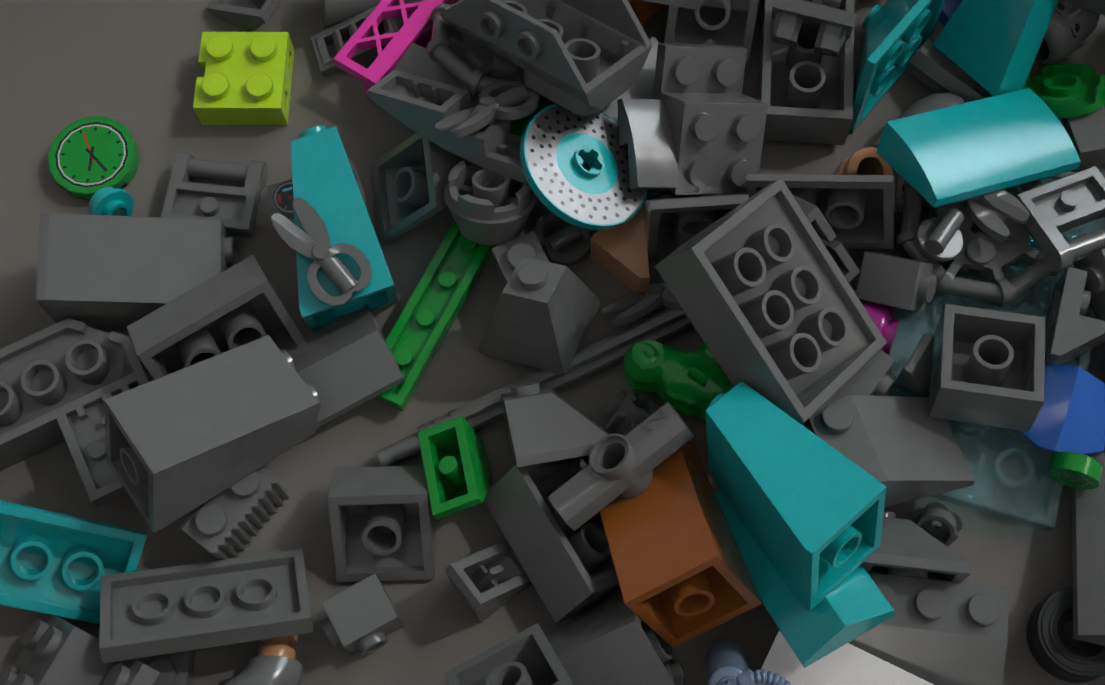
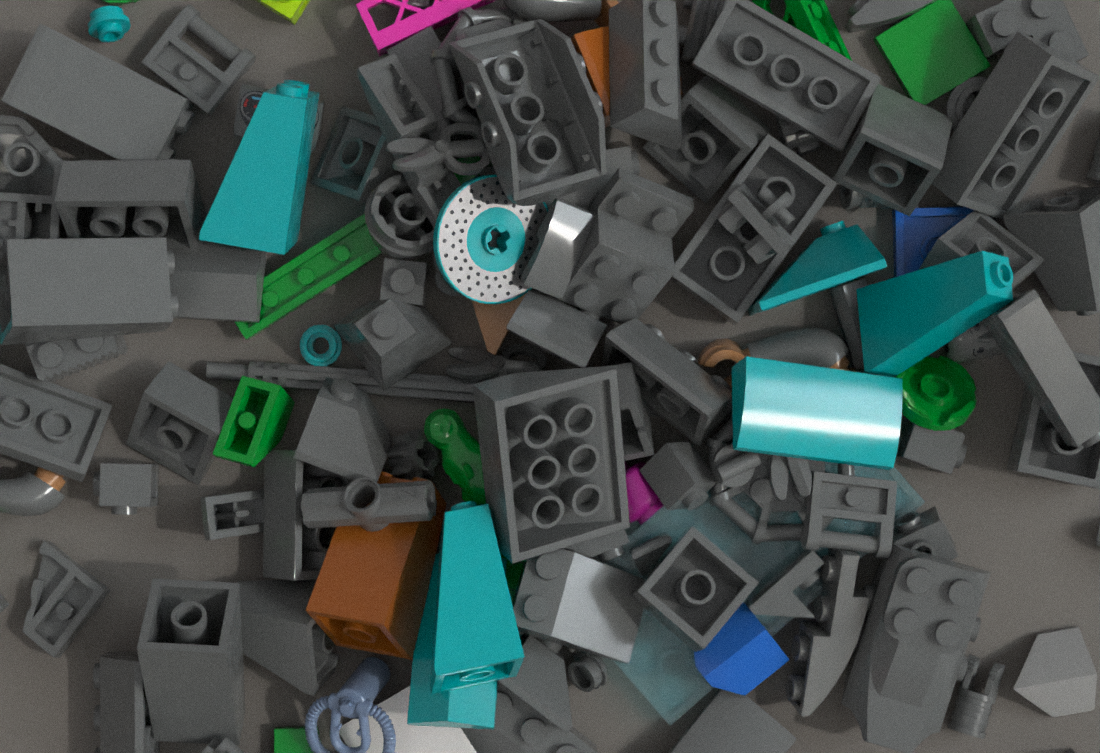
camera: 30 degrees right, 20 degrees up
(316, 245) = (236, 194): dark grey piece -> none
(470, 364) = (307, 345): none -> teal plate
(1075, 470) = (709, 699): green tile -> none

